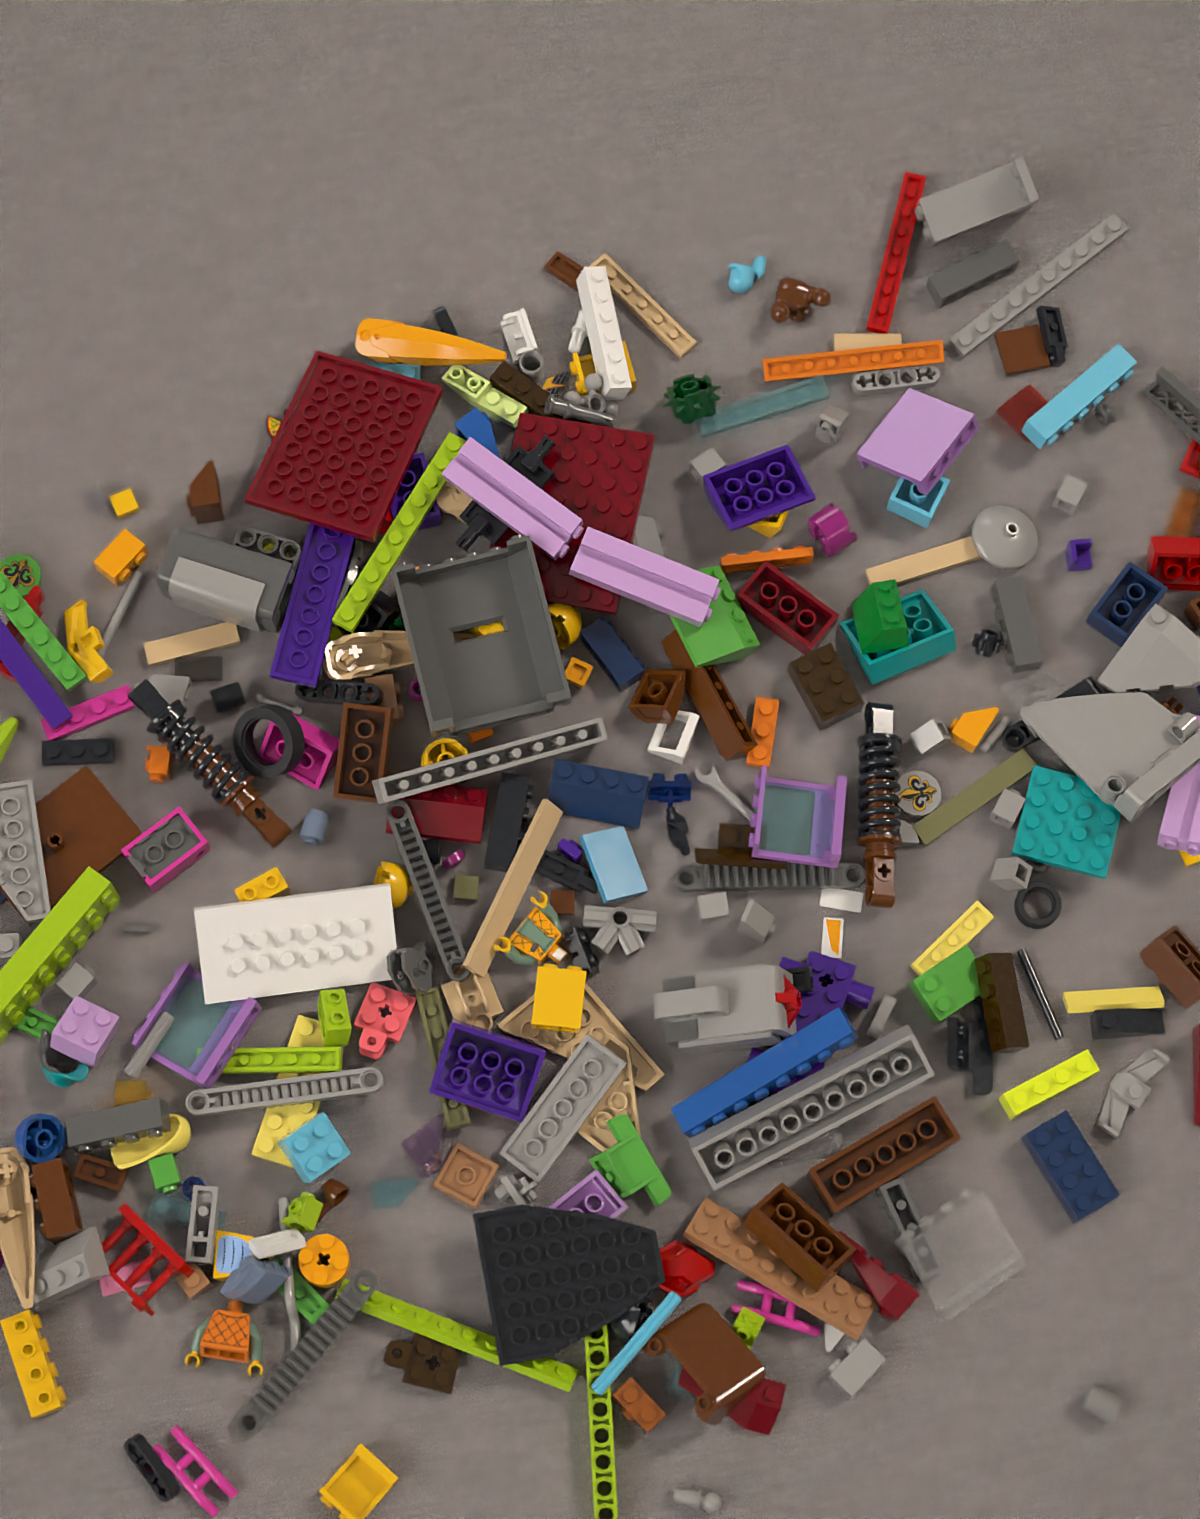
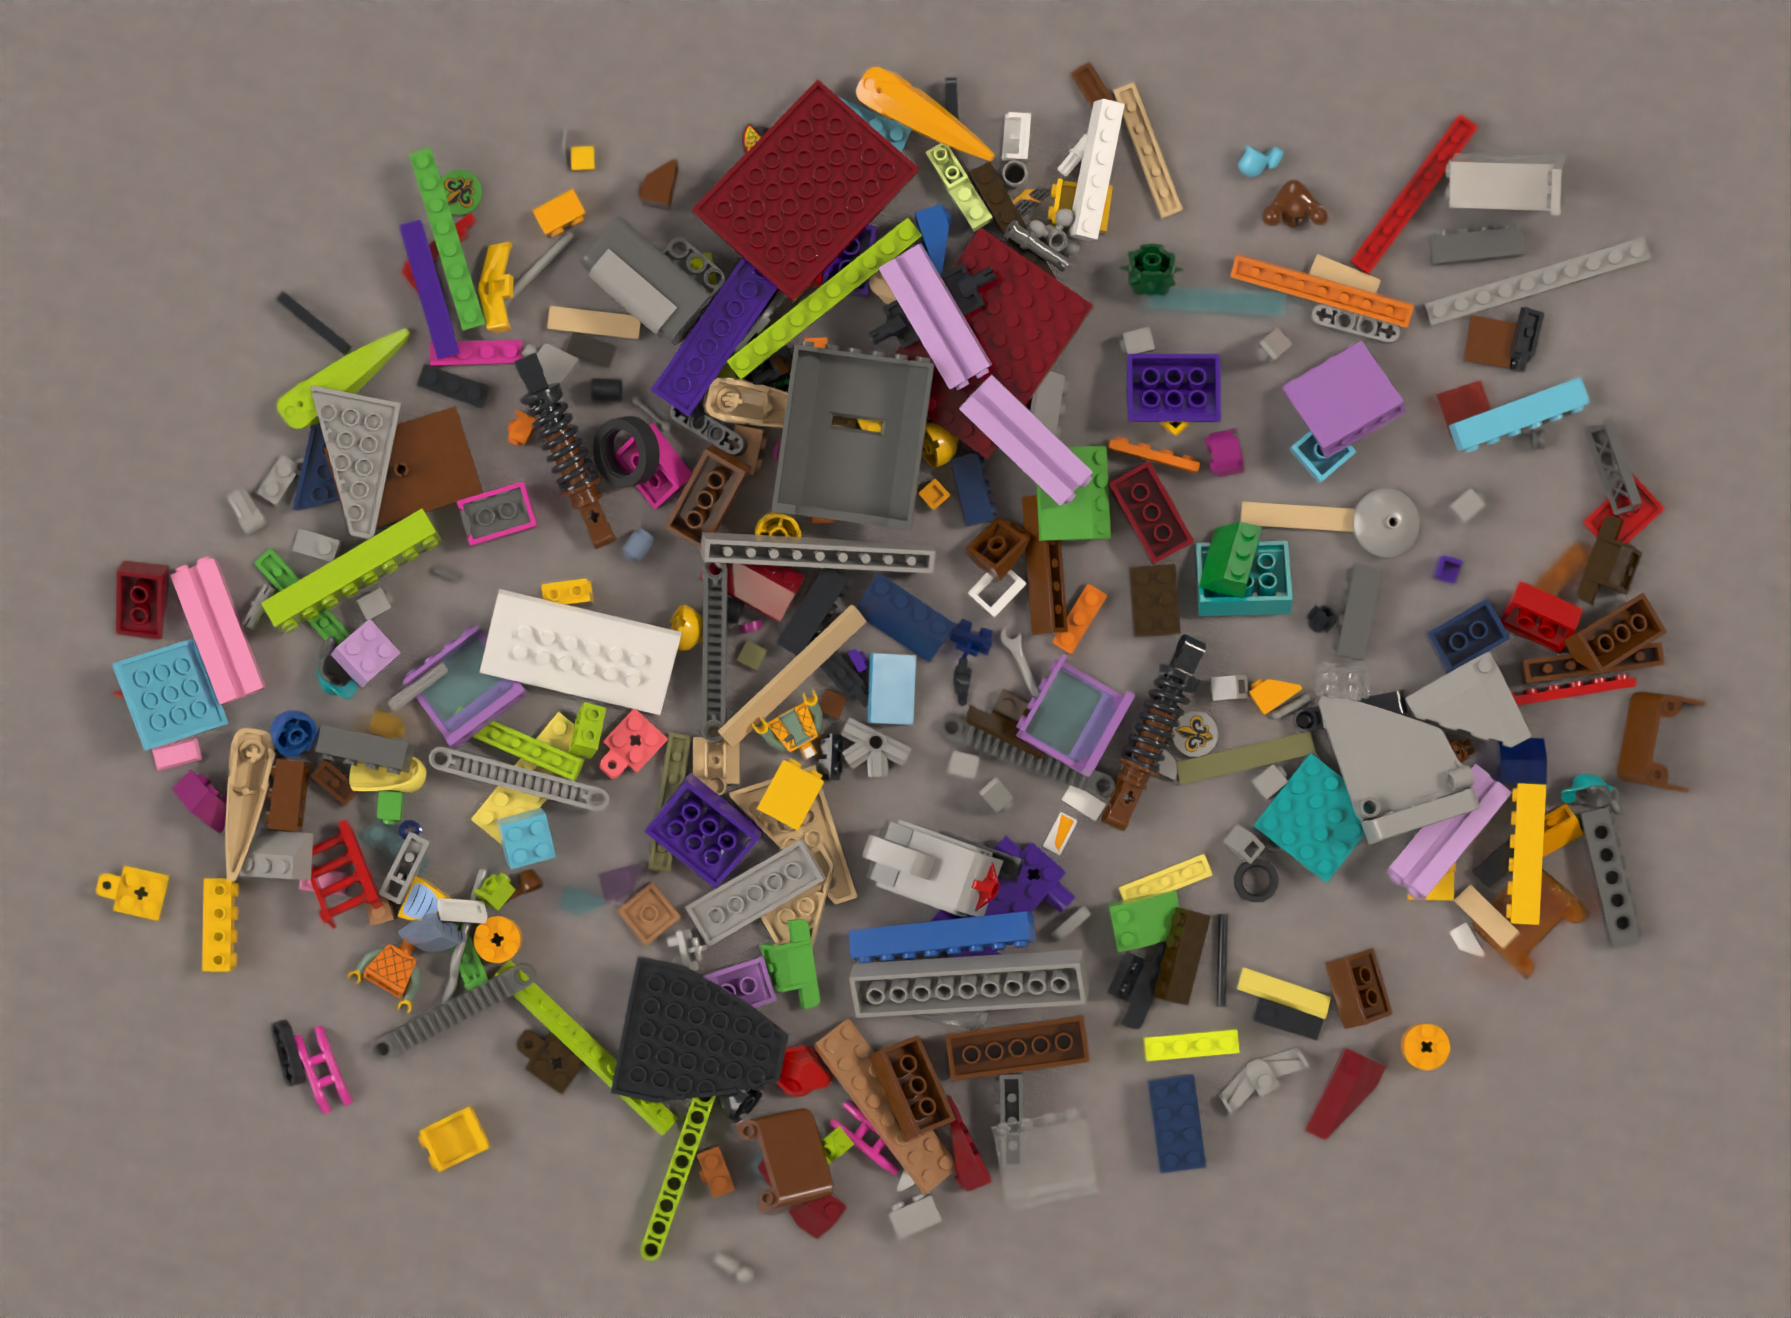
camera: 25 degrees right, 15 degrees up
(412, 966) = (675, 712): dark grey hinge -> none
(636, 1343) = (733, 1122): medium azure axle -> none

